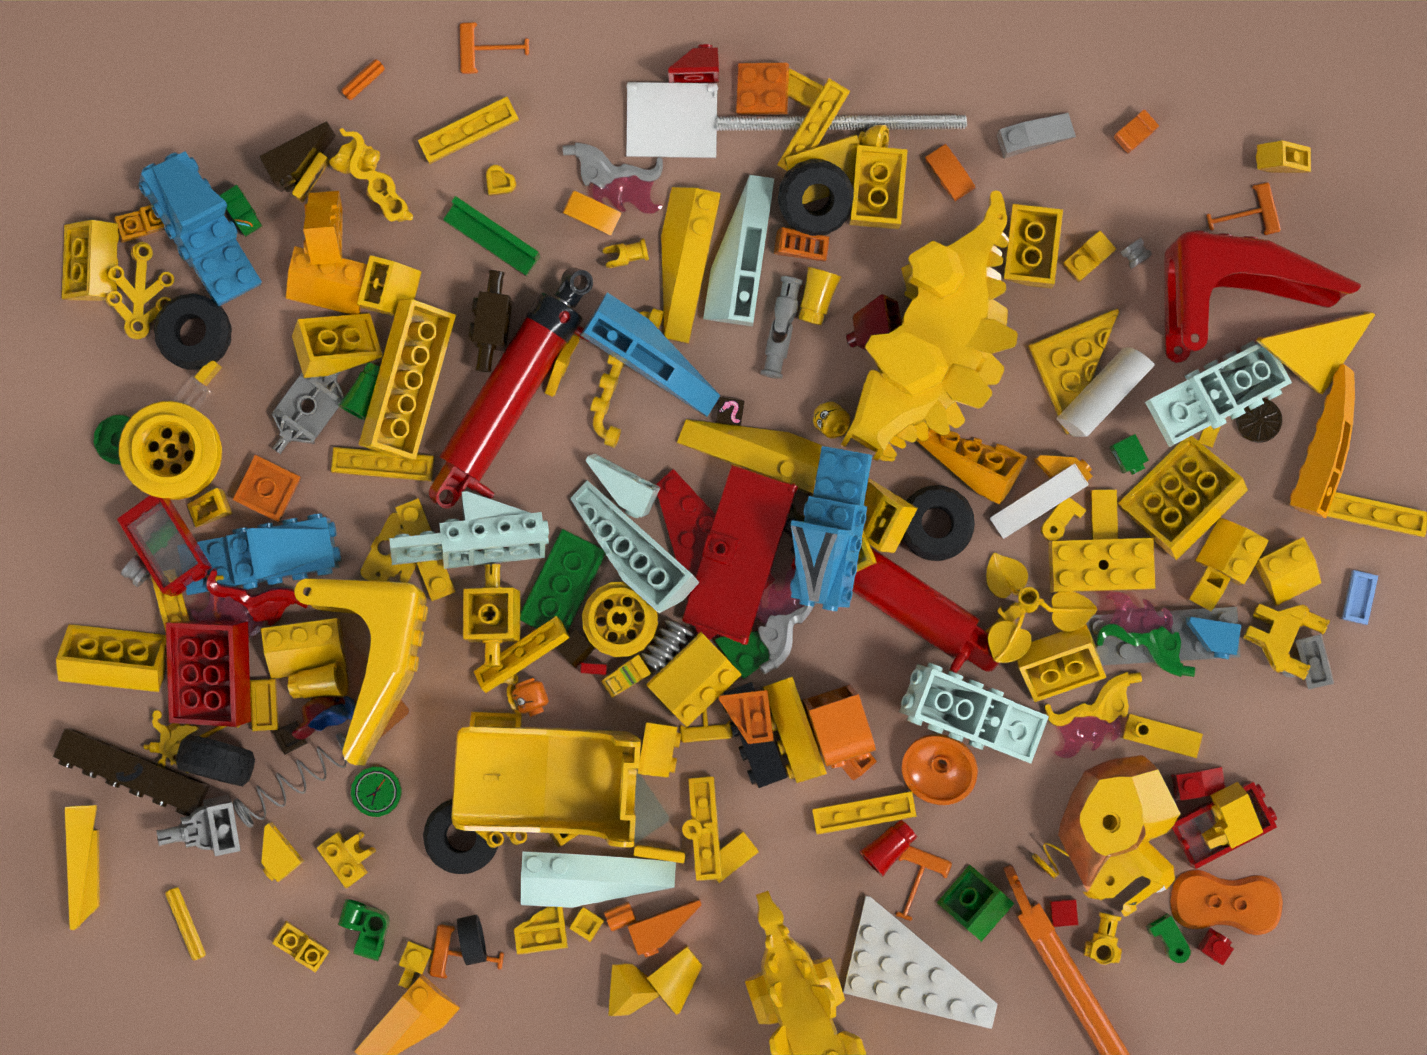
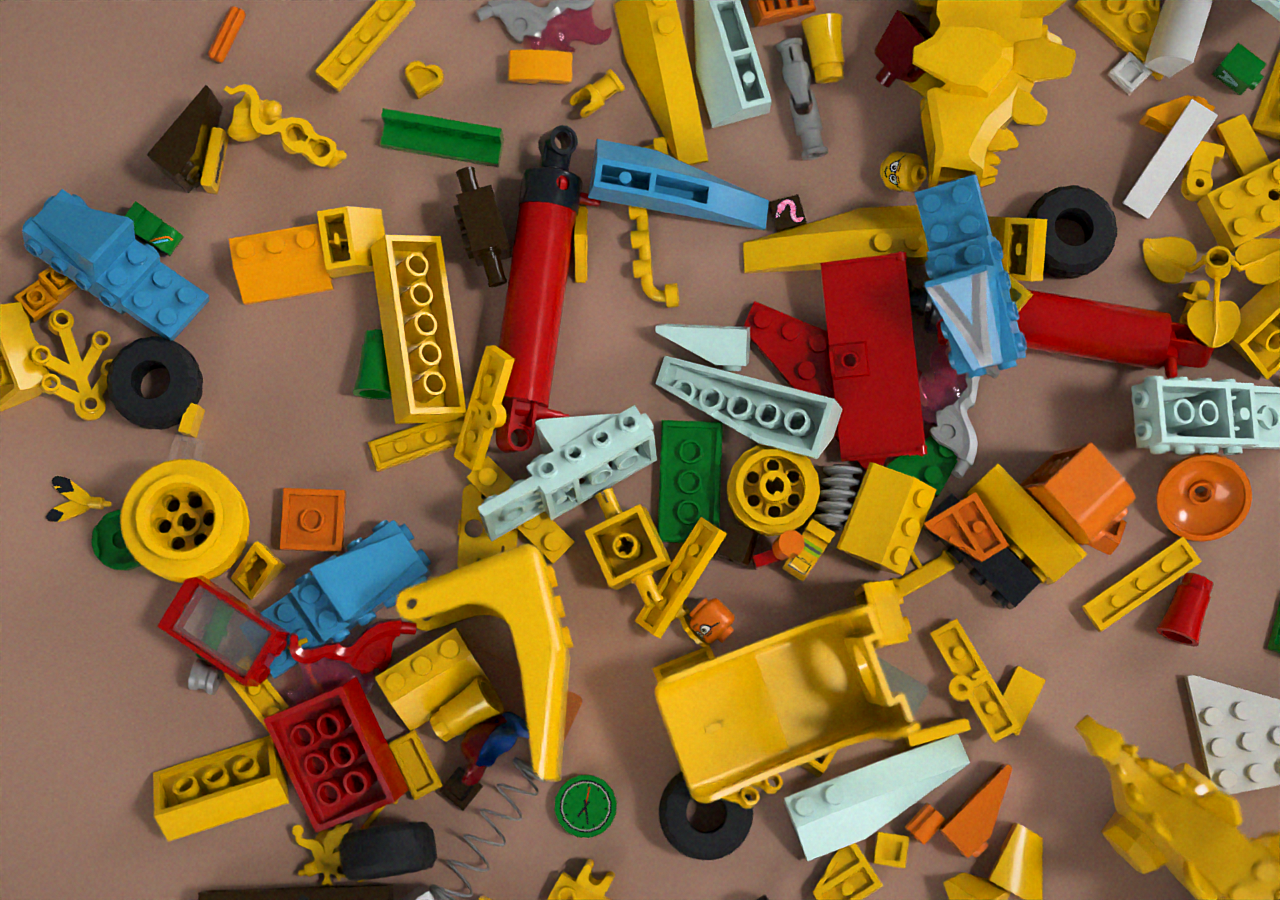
camera: 20 degrees left, 5 degrees down
(98, 396) = (80, 502): none -> yellow piece
(303, 426) = (326, 433): light grey plate -> none
(323, 227) = (252, 204): light orange wedge -> none
(335, 343) = (319, 327): yellow slope -> none
(429, 464) = (484, 408): none -> yellow hinge
(609, 667) = (788, 545): none -> orange piece
(927, 861) = (1234, 607): orange piece -> none
(982, 467) = (1091, 152): light orange wedge -> none
(1044, 418) = (1129, 73): none -> white tile

